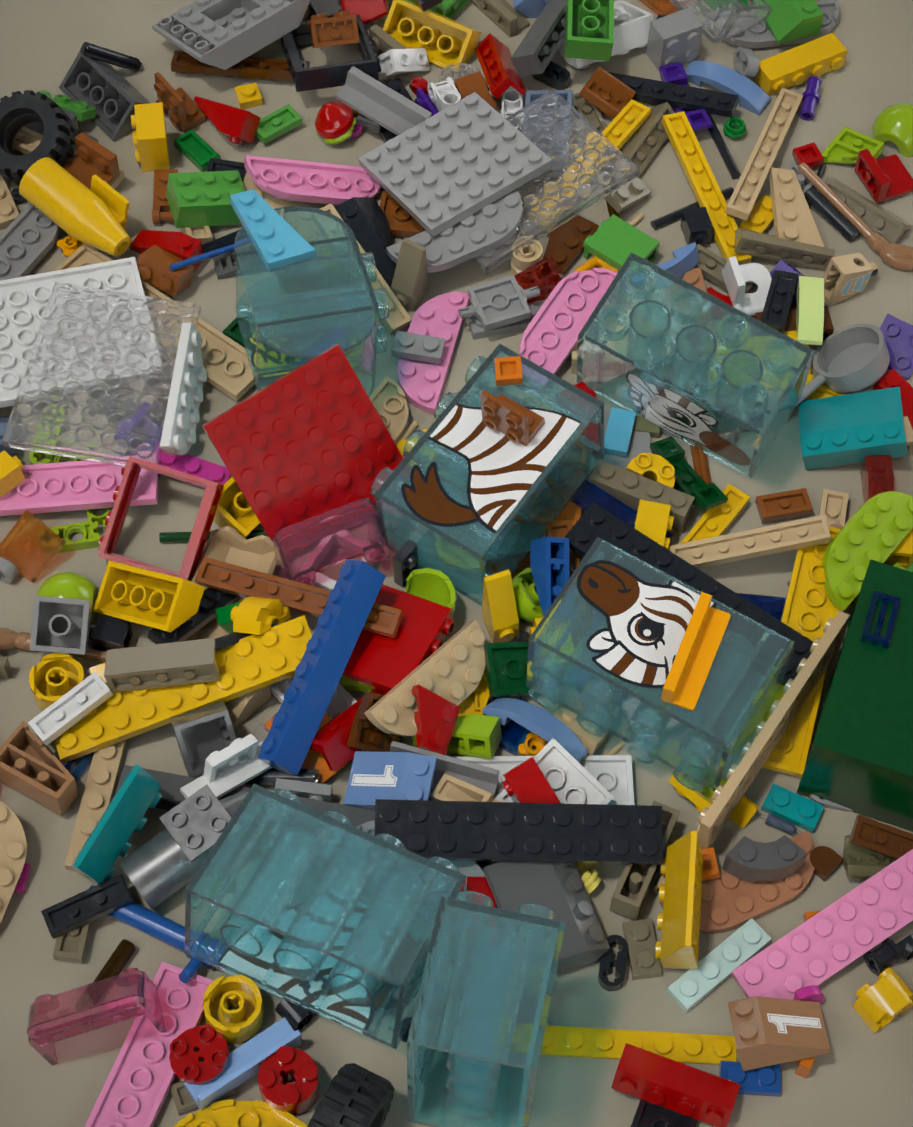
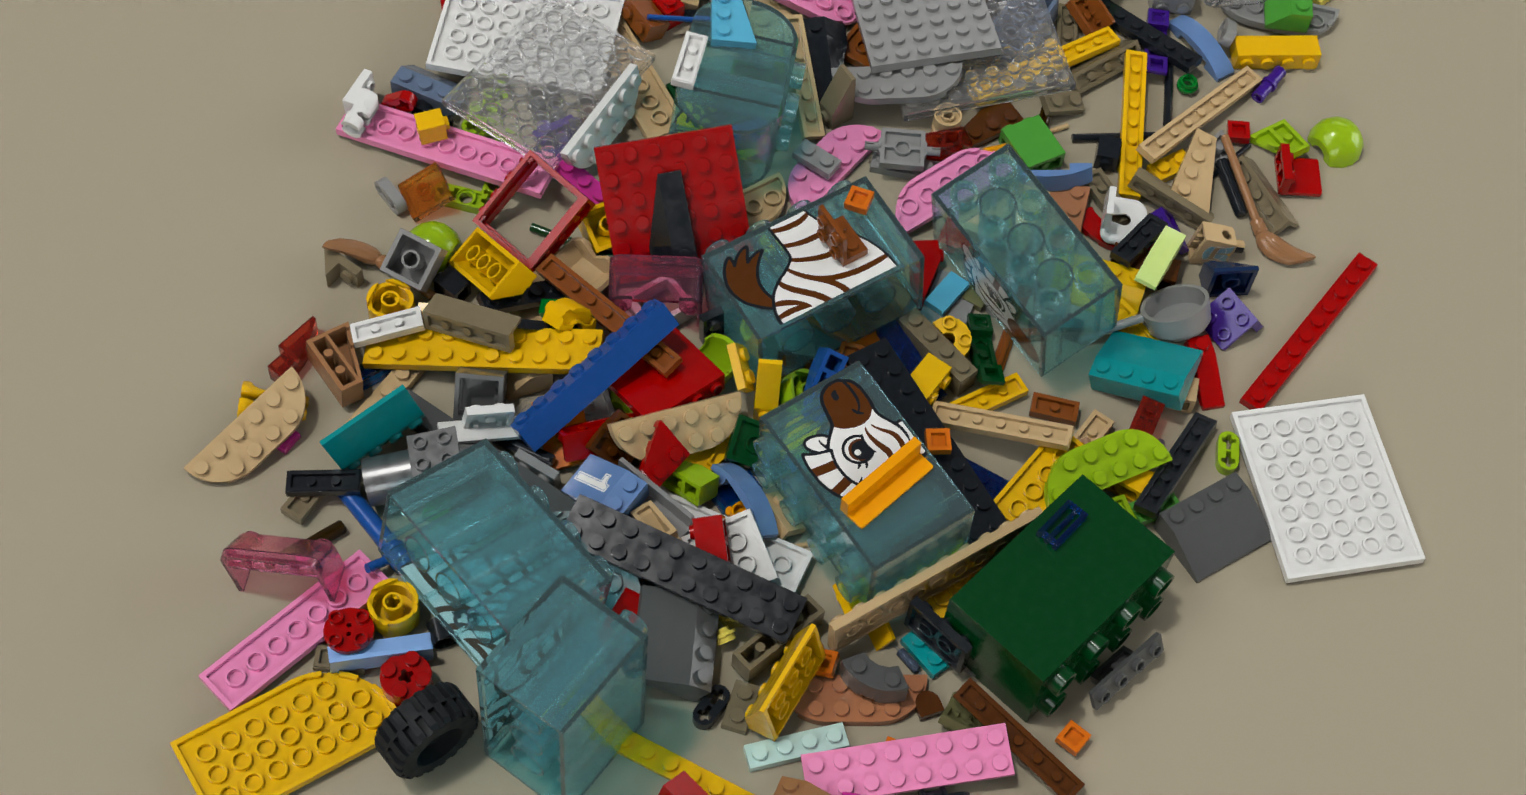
camera: 20 degrees right, 0 degrees up
(256, 295) = (689, 60): none -> white tile
(316, 471) = (671, 220): none -> black wedge
(458, 586) = (742, 373): none -> yellow plate
(705, 583) = (938, 440): none -> orange plate
(805, 785) = (938, 634): none -> black plate
(875, 303) = (1221, 275): none -> dark blue slope

